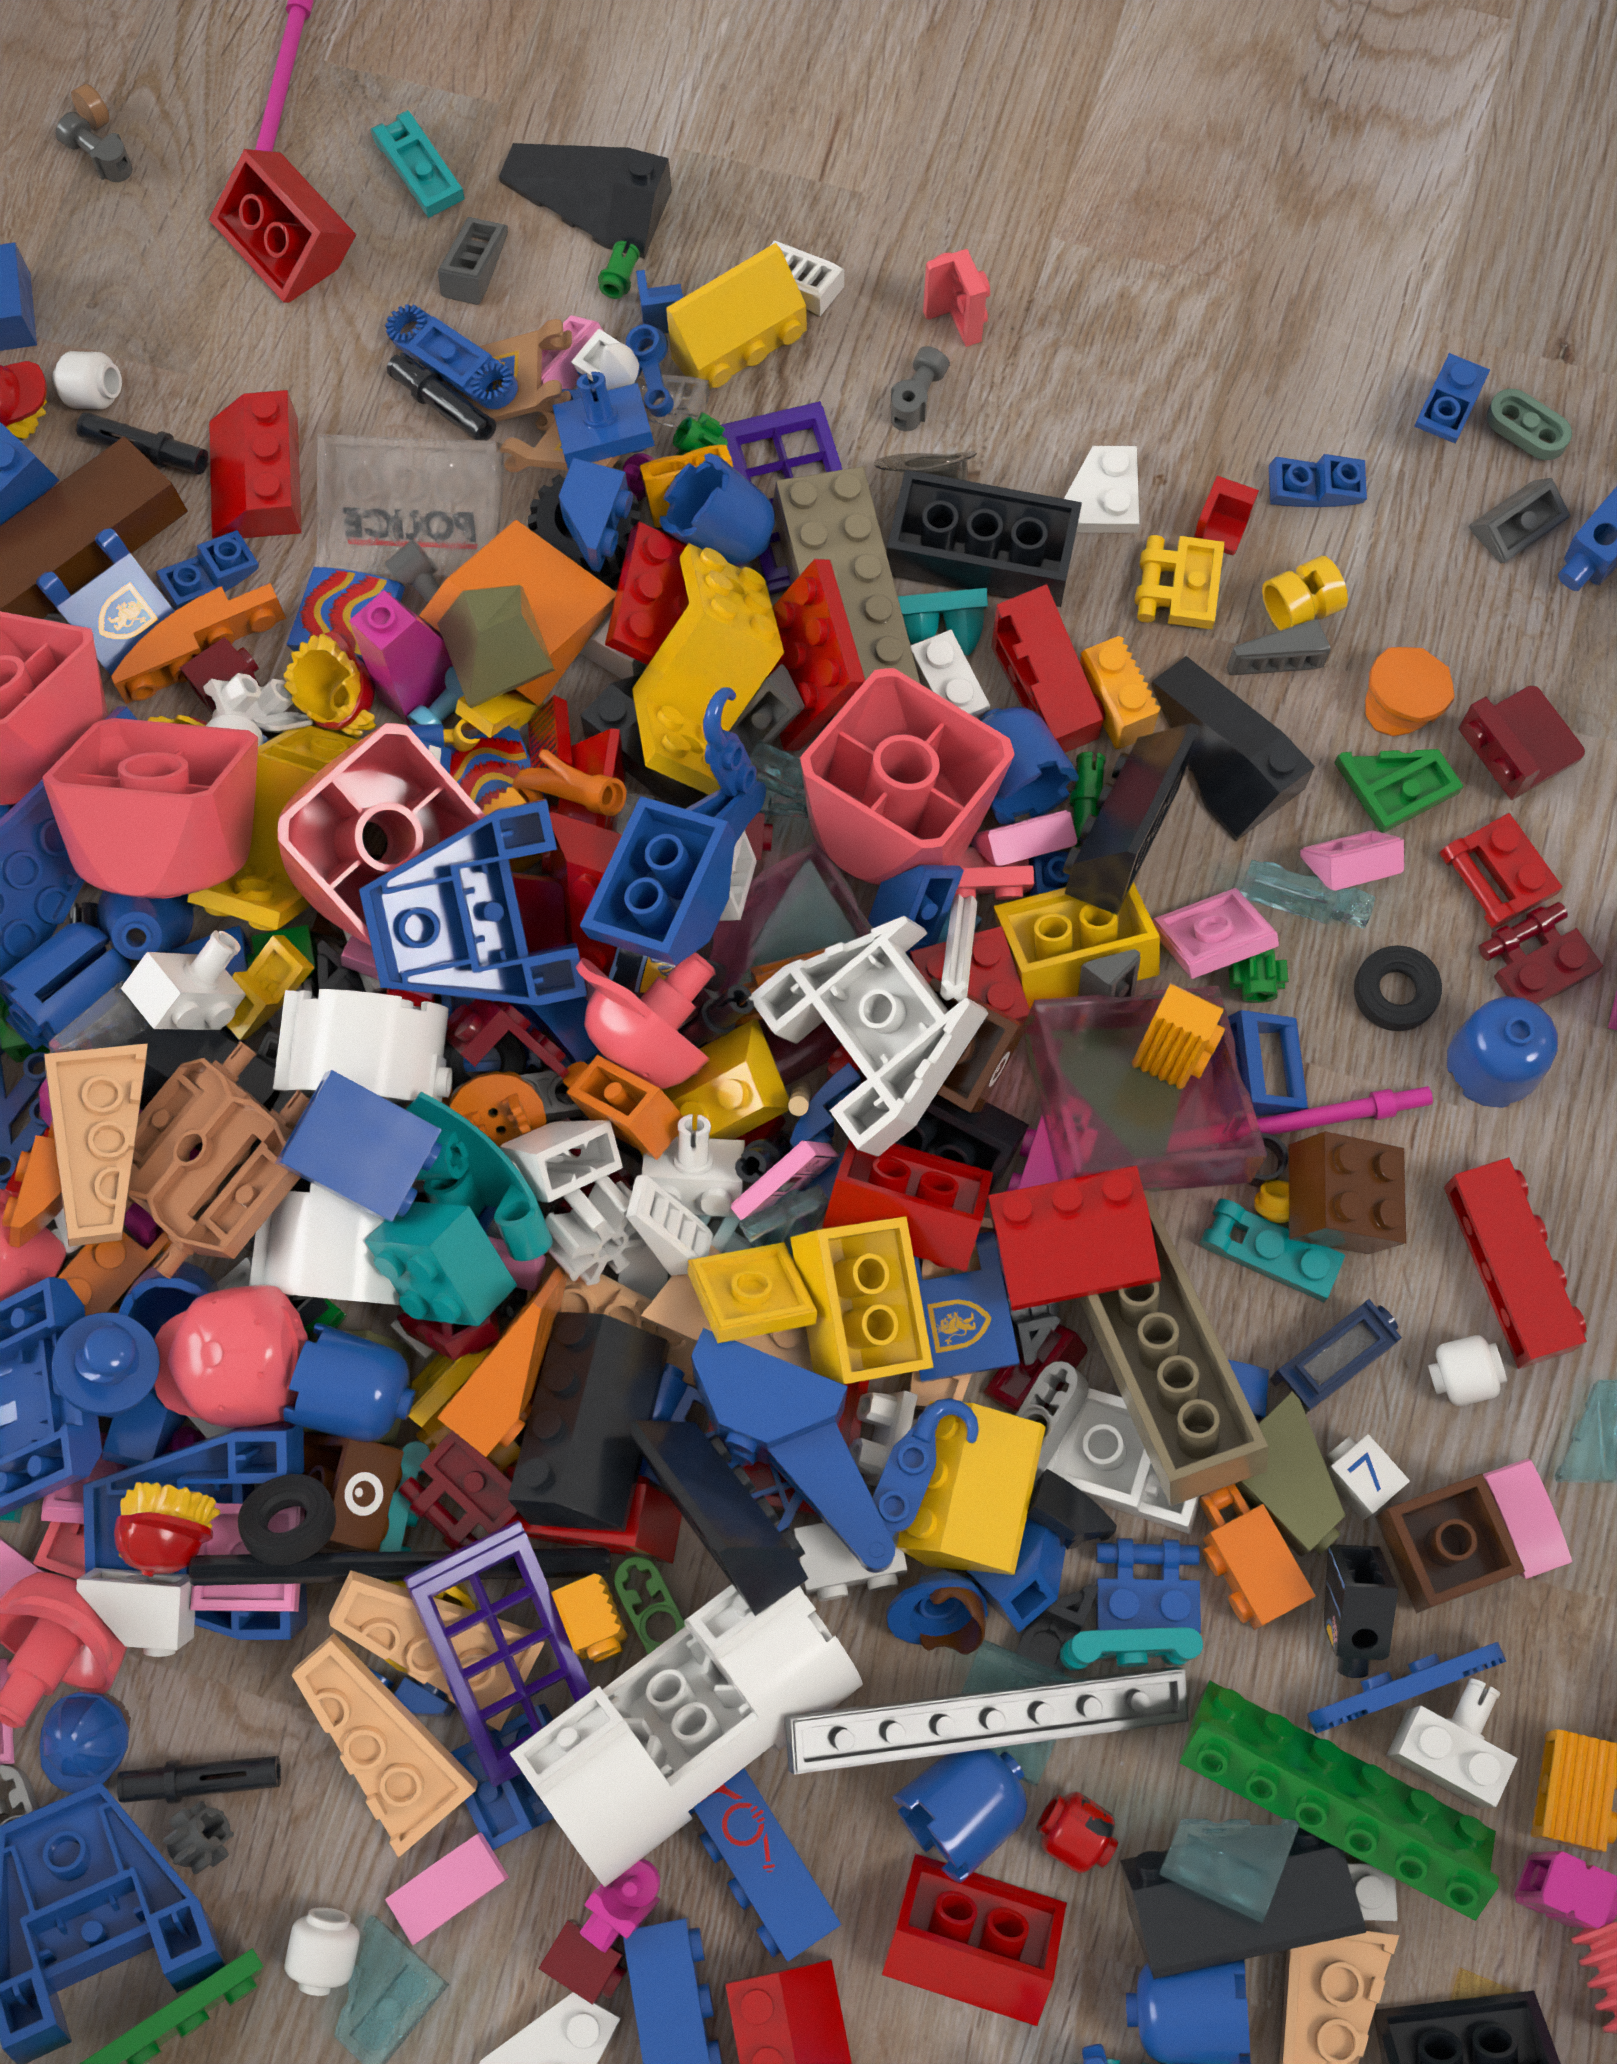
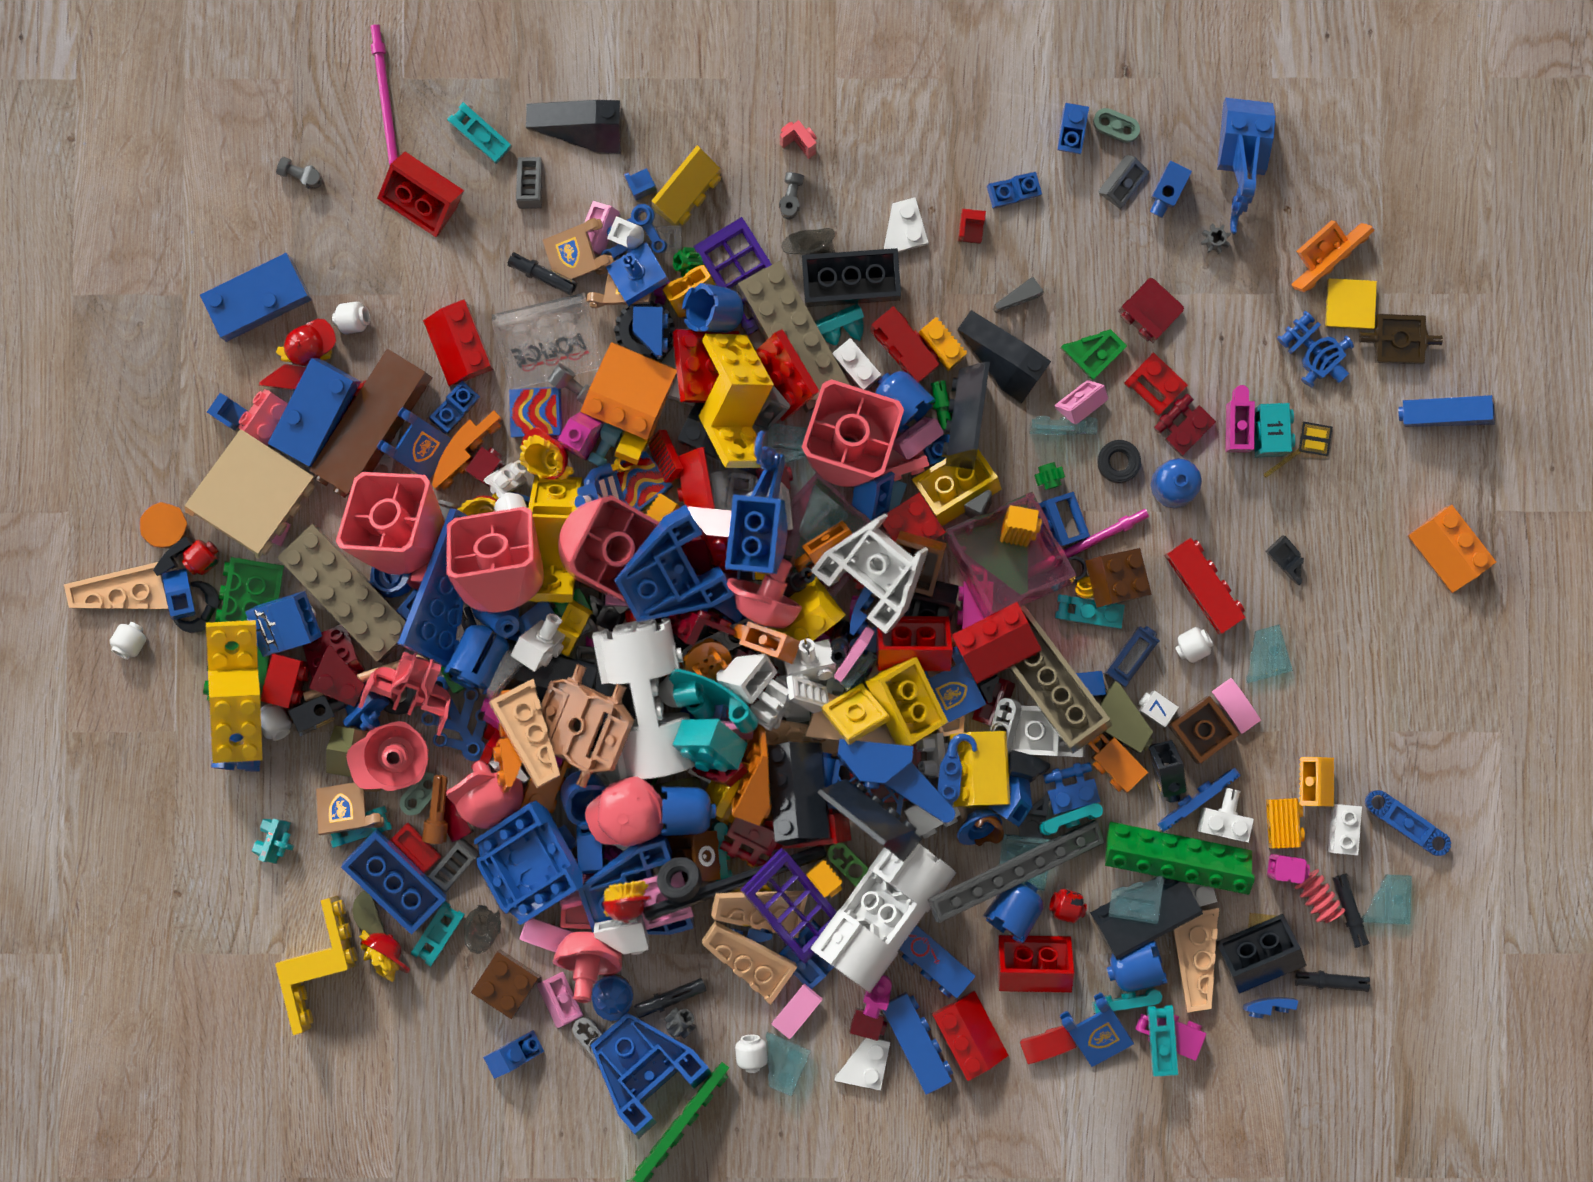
camera: 15 degrees left, 15 degrees up
(90, 106) = (288, 149): medium nougat tile -> none
(105, 1364) = (571, 834): blue plate -> none
(158, 447) = (403, 345): black pin -> none
(282, 721) = (526, 483): white piece -> none
(360, 1147) = (658, 706): brick -> none
(452, 356) = (540, 249): blue plate -> none
(493, 642) = (627, 421): olive slope -> none
(598, 792) = (706, 488): orange plant -> none
(615, 278) = (610, 169): green pin -> none
(800, 1098) = (847, 608): tan bar -> none
(827, 273) = (726, 140): white slope -> none
(959, 948) = (904, 516): white axle -> none
(1194, 585) = (965, 269): yellow plate -> none
(1215, 933) = (1023, 461): bright pink tile -> none
(1311, 592) = (1016, 266): yellow wheel -> none
(1407, 690) = (1088, 299): orange hat -> none

